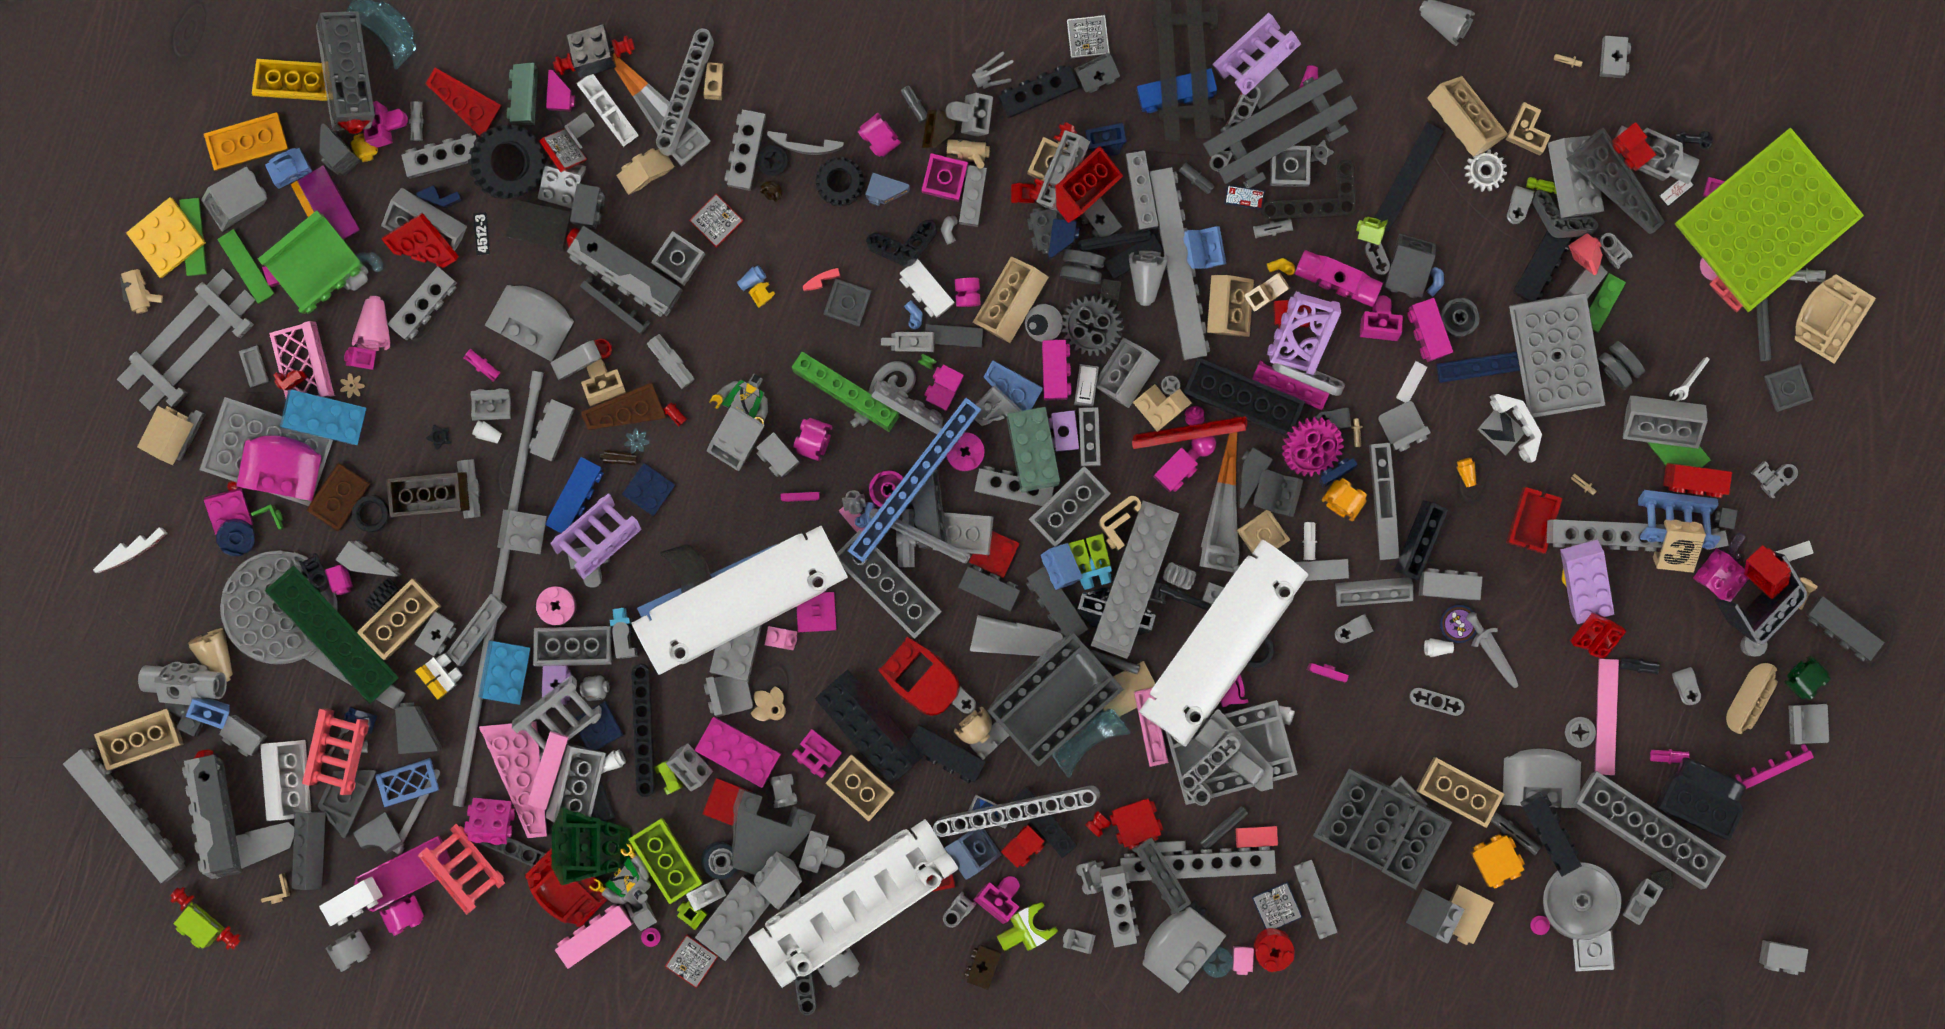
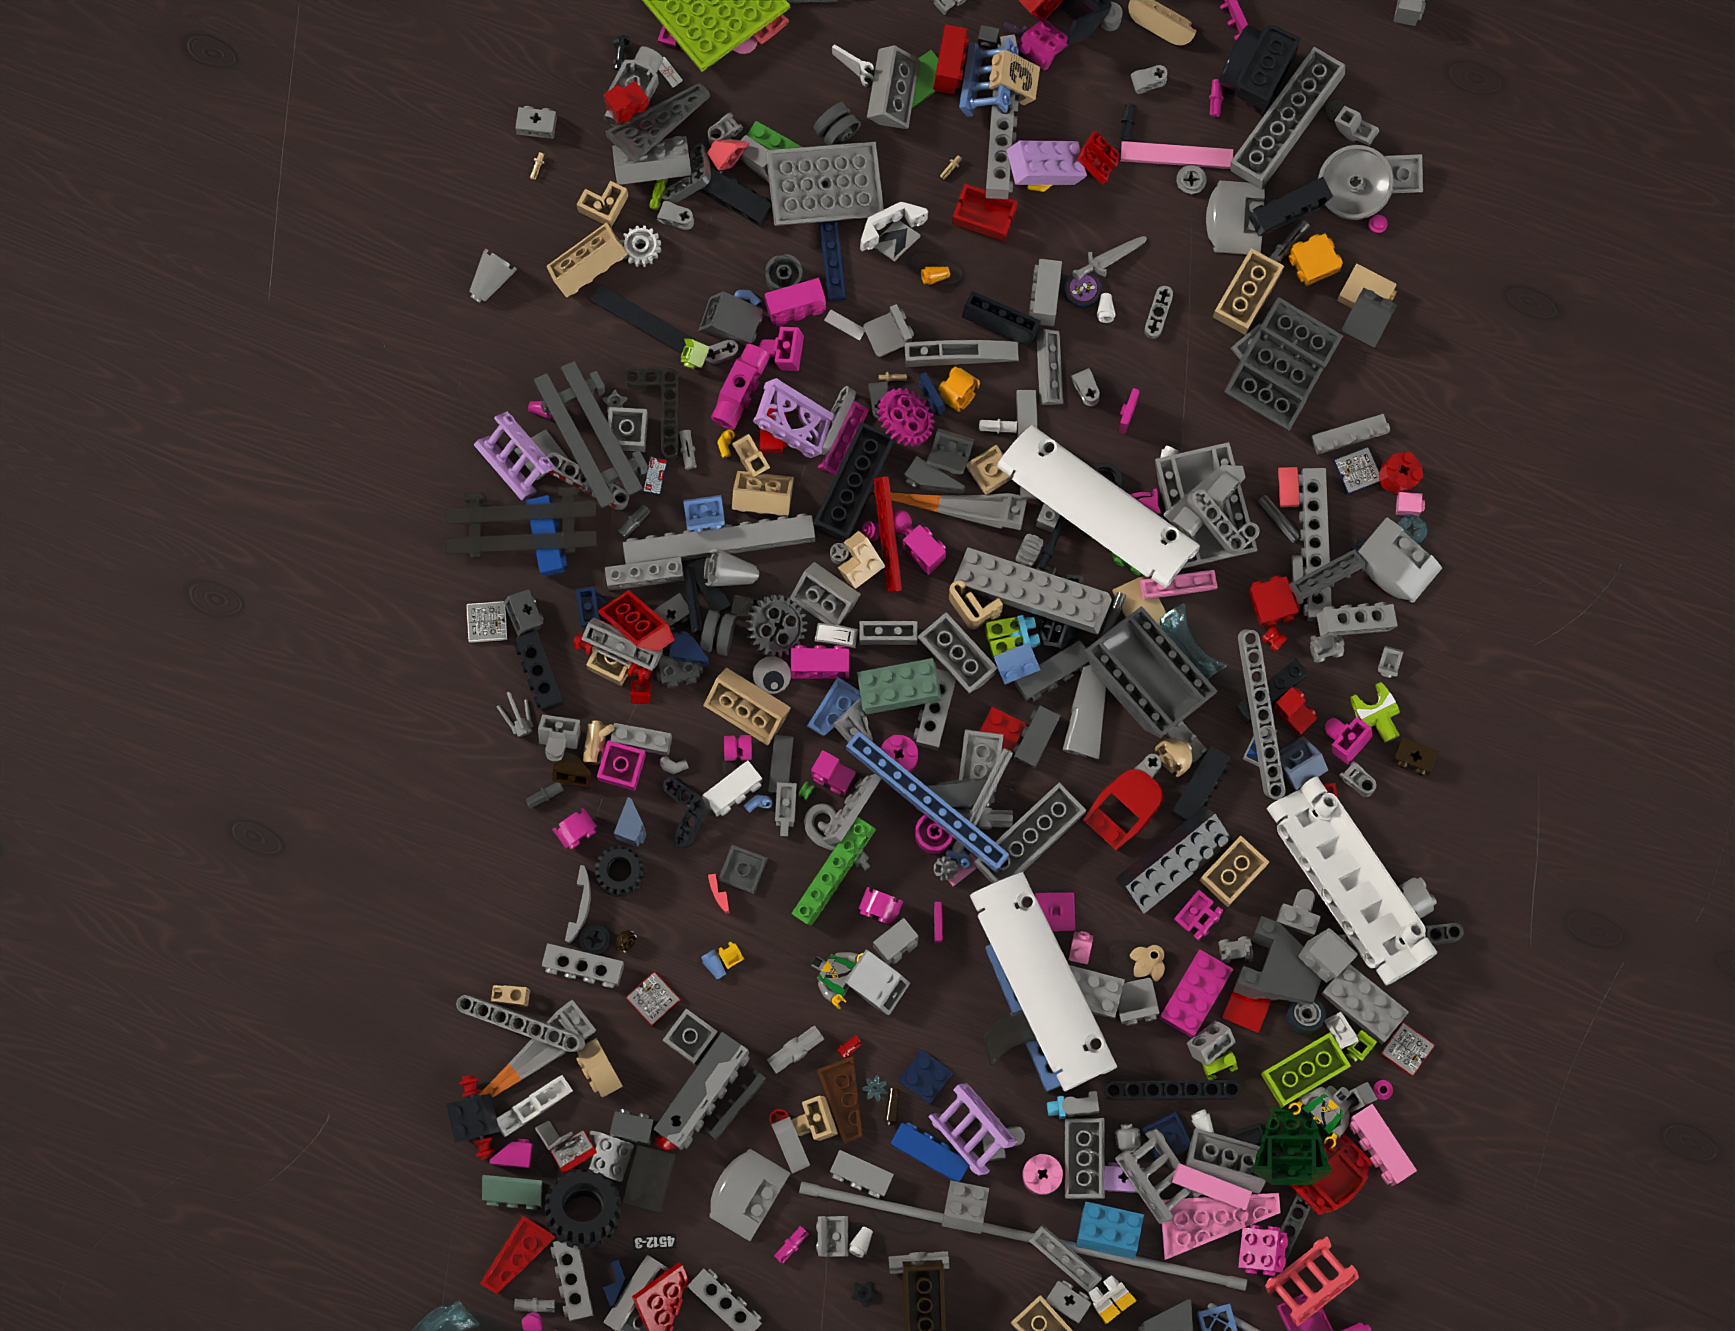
camera: 90 degrees left, 10 degrees down
(1067, 420) = (871, 652): lavender brick -> none

